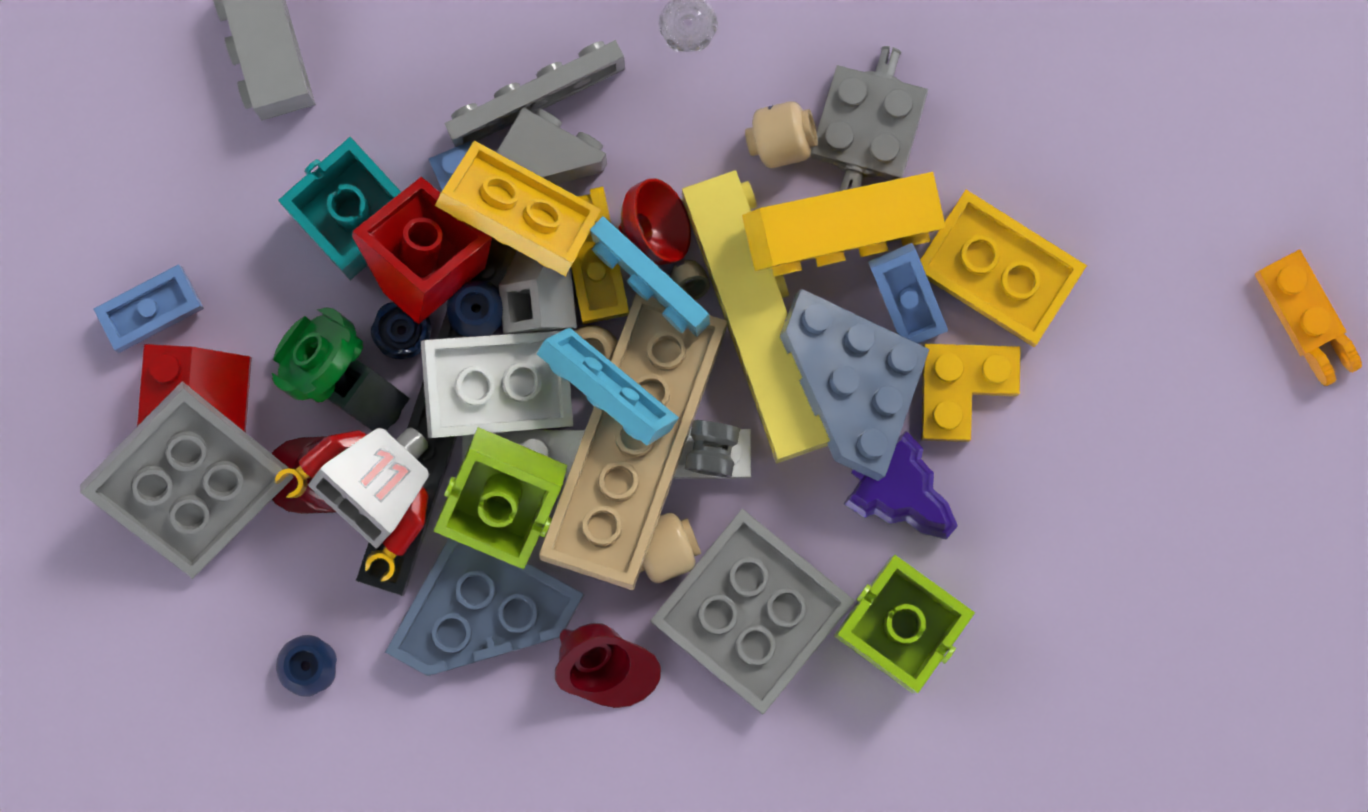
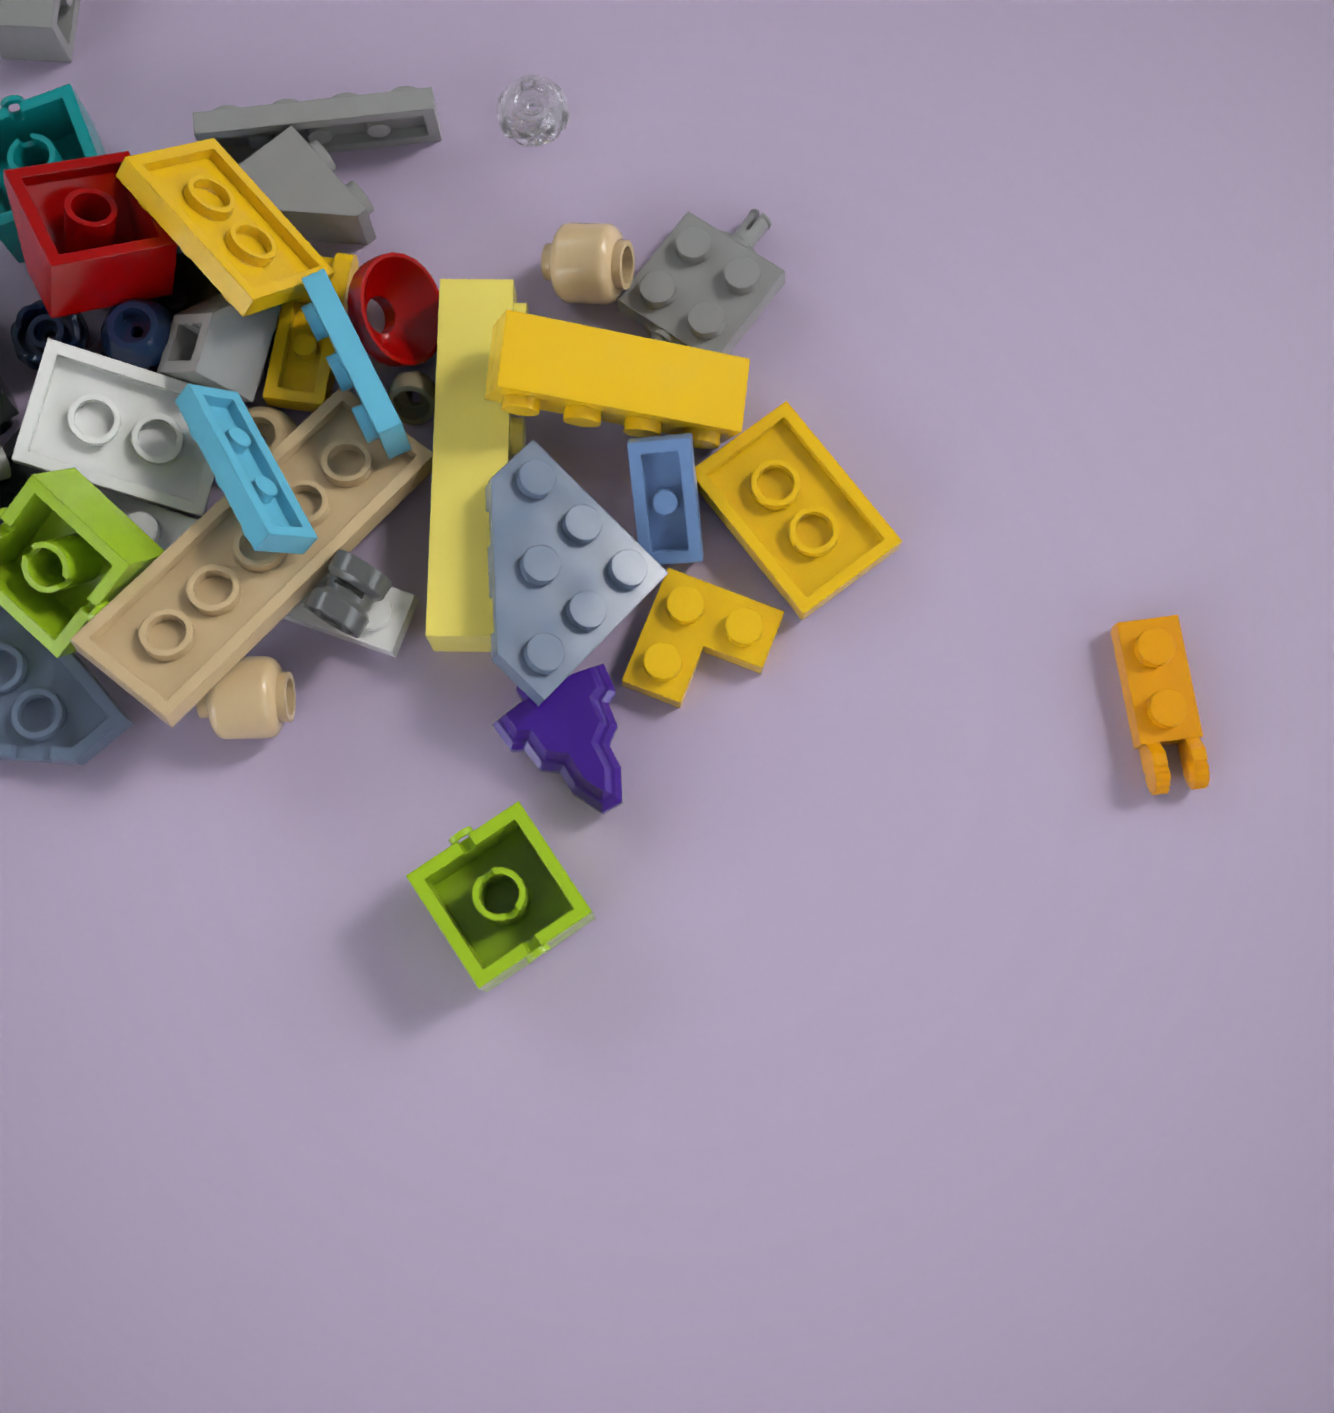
camera: 20 degrees right, 5 degrees down
(605, 667) = (110, 817): dark red piece -> none
(752, 611) = (324, 816): light grey plate -> none

